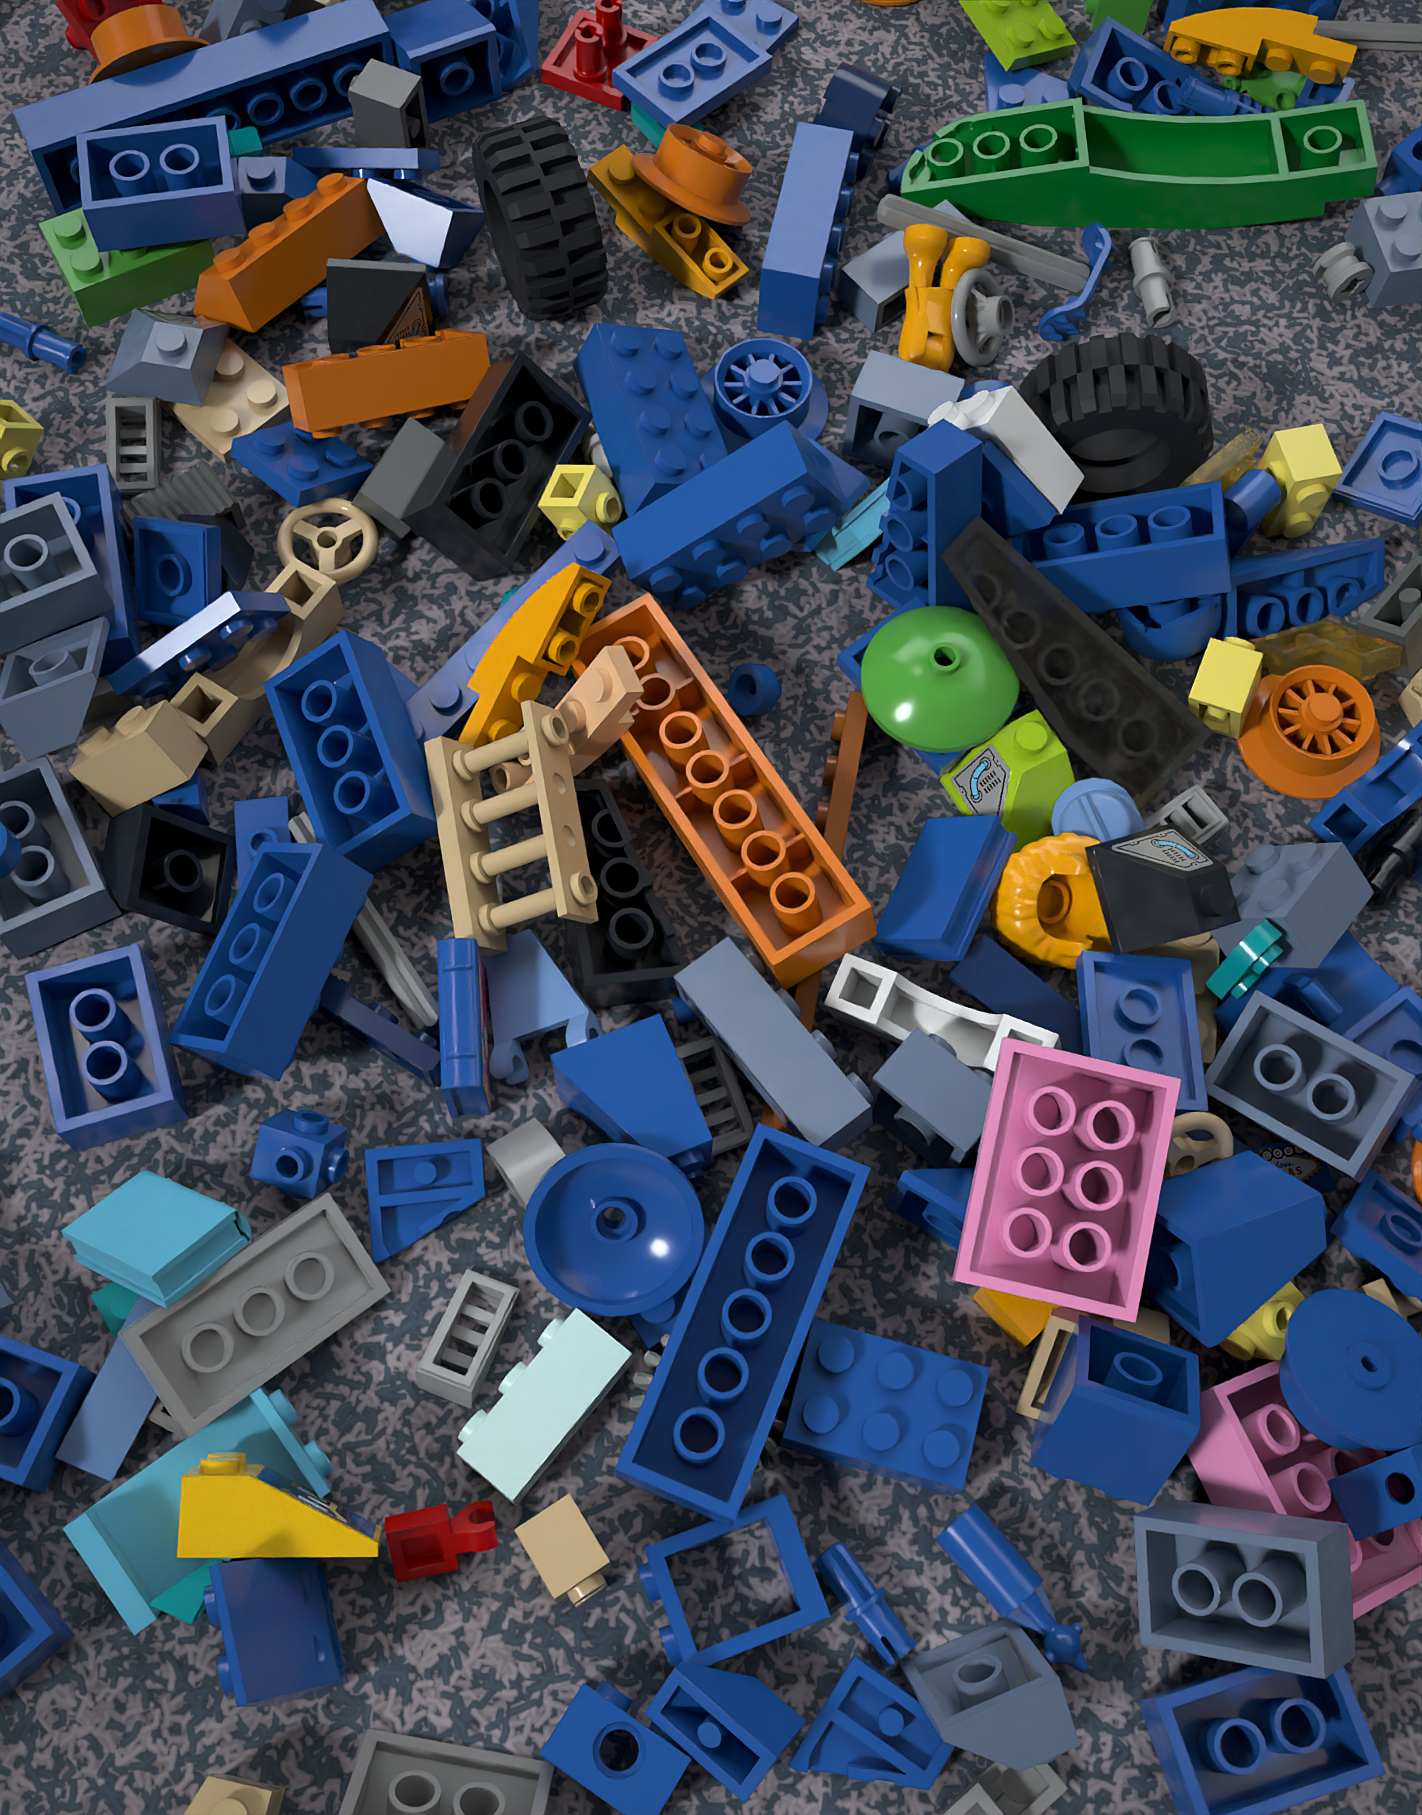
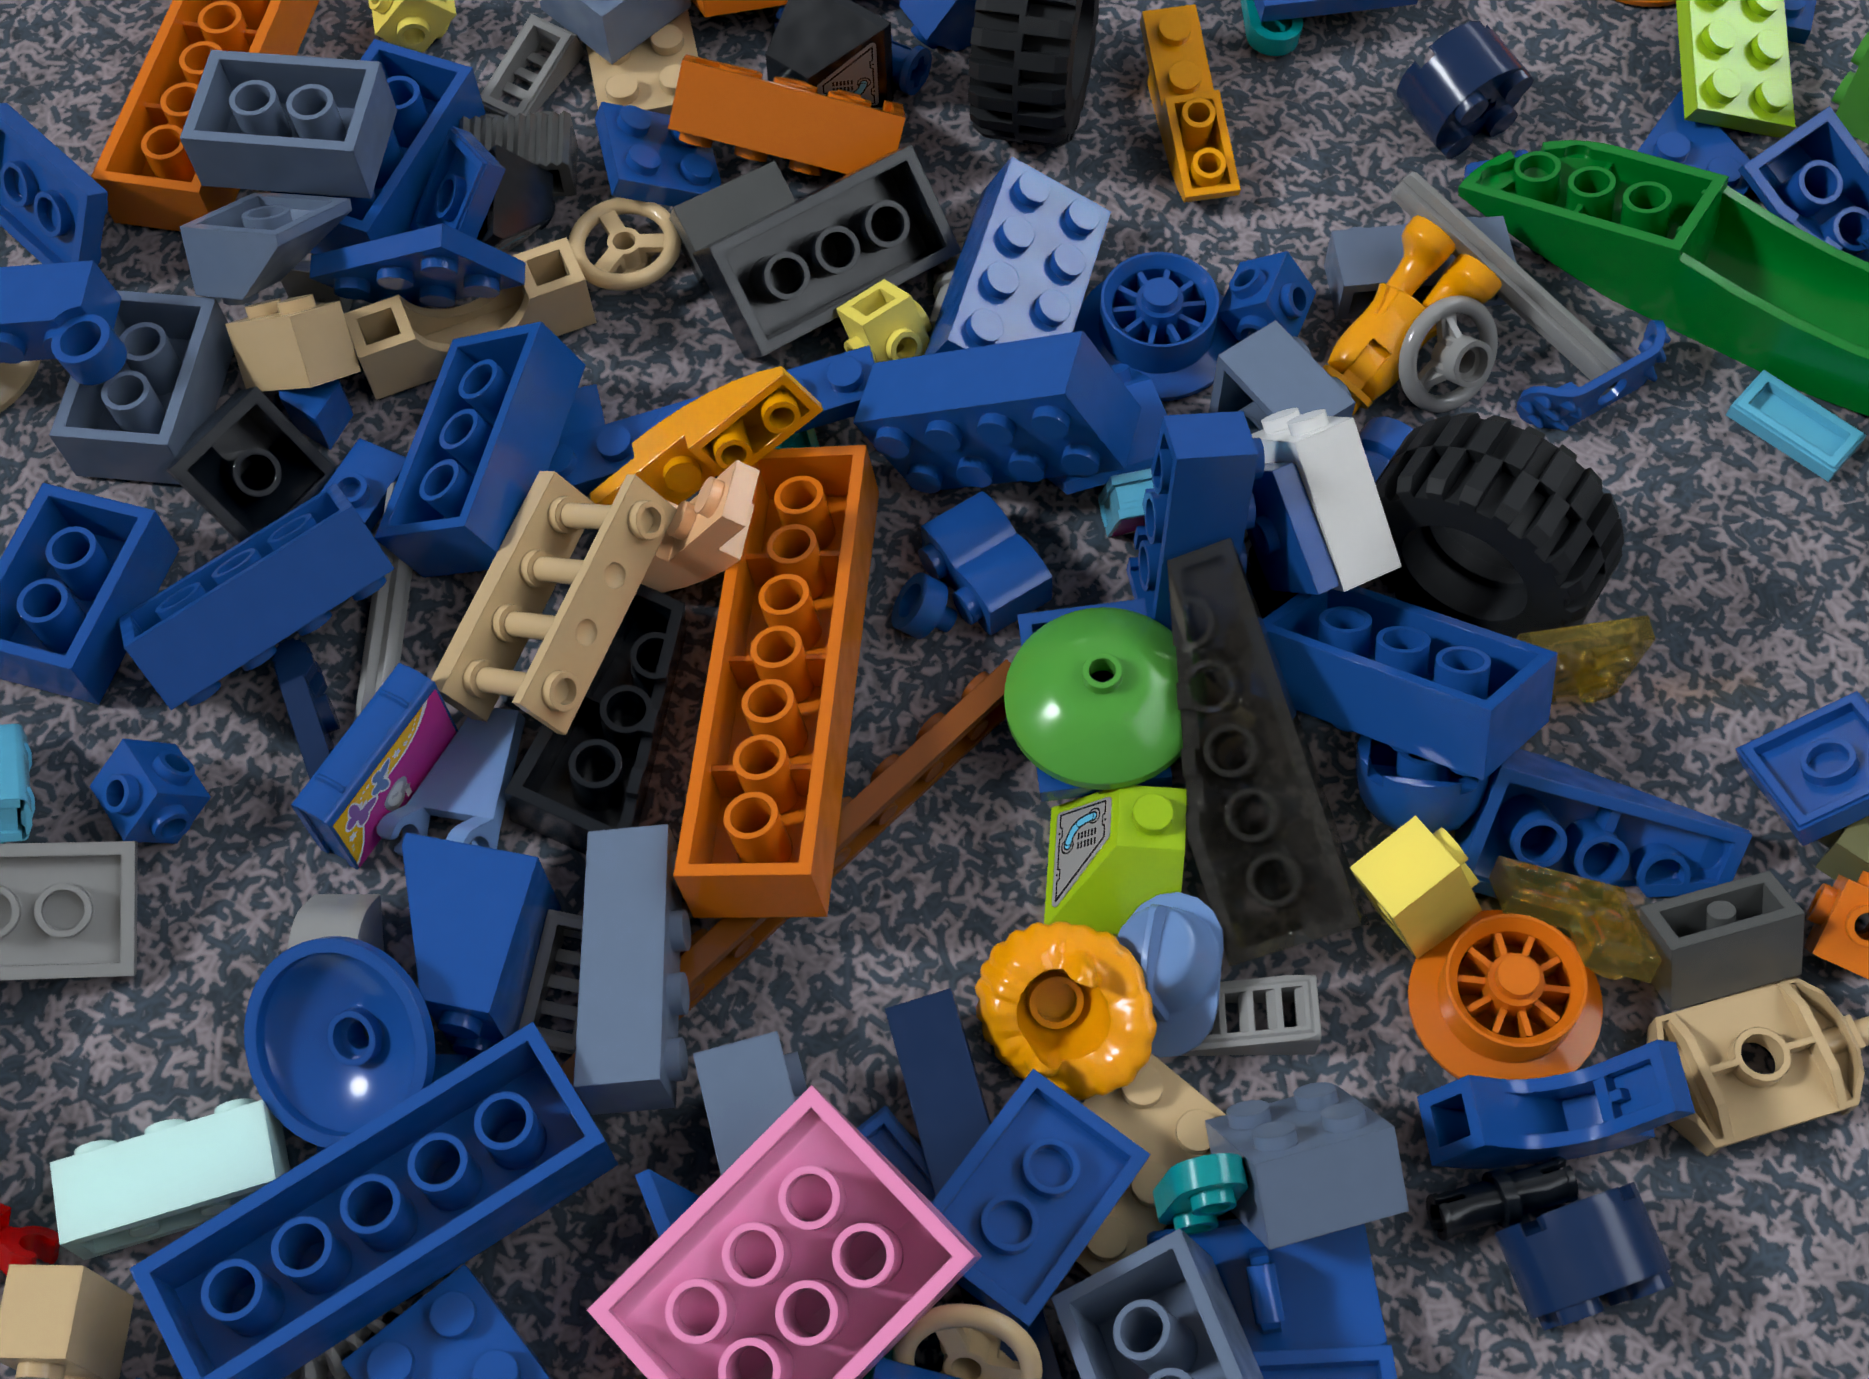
camera: 40 degrees right, 5 degrees down
(420, 1190) = (228, 898): blue wing -> none
(450, 1384) = (155, 1098): light grey slope -> none
(698, 174) = (1247, 69): orange piece -> none
(774, 632) = (985, 563): none -> blue brick
(807, 231) = (1324, 169): brick -> none
(831, 342) = (1266, 292): none -> blue brick
(894, 1006) = (834, 1055): white arch -> none
(944, 888) = (949, 918): blue piece -> none
(1152, 282) = (1690, 418): light grey pin -> none
(1159, 888) = (1160, 1051): black slope -> none
(1215, 254) = (1796, 425): none -> medium azure tile
(1247, 505) = (1586, 708): blue piece -> none
(1306, 473) = (1679, 710): light yellow brick -> none

